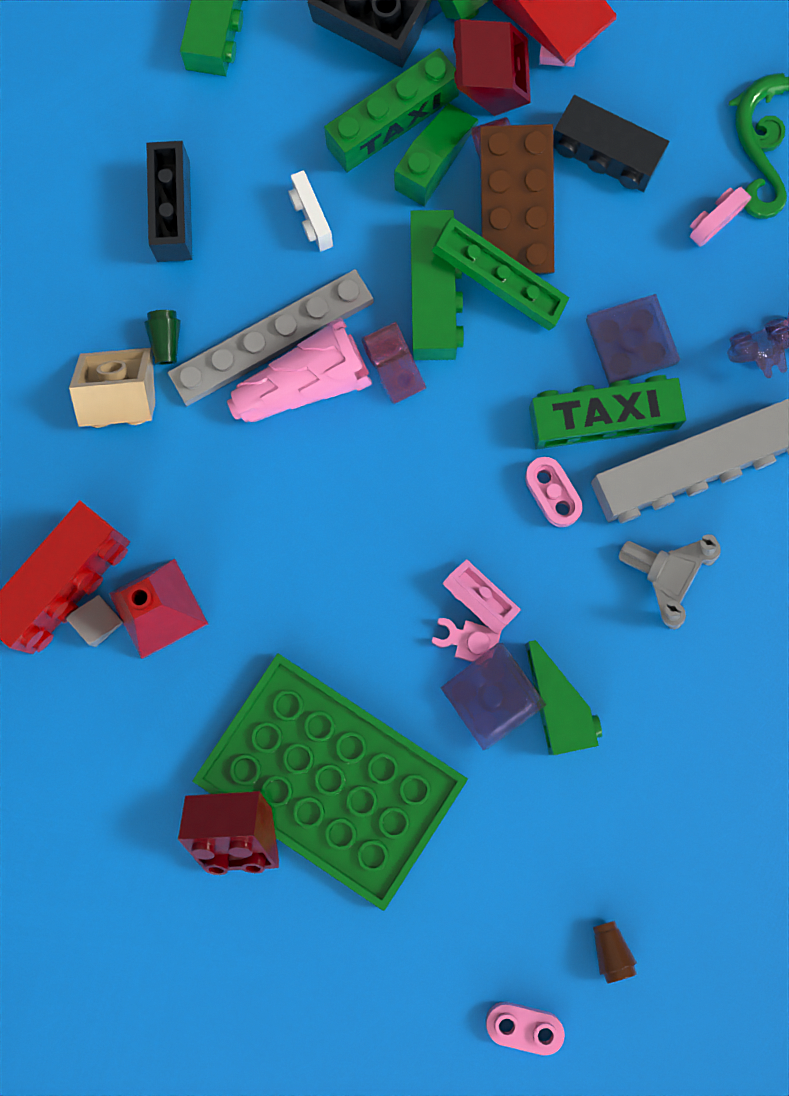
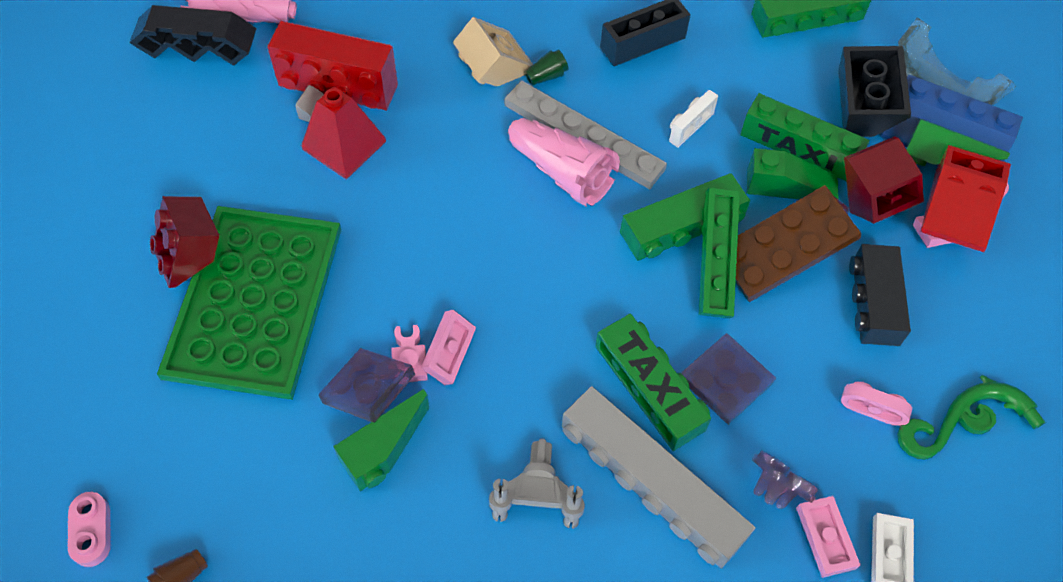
camera: 60 degrees right, 20 degrees down
(393, 362) = (607, 213): clear pink plate -> none
(556, 491) = (562, 369): bright pink plate -> none

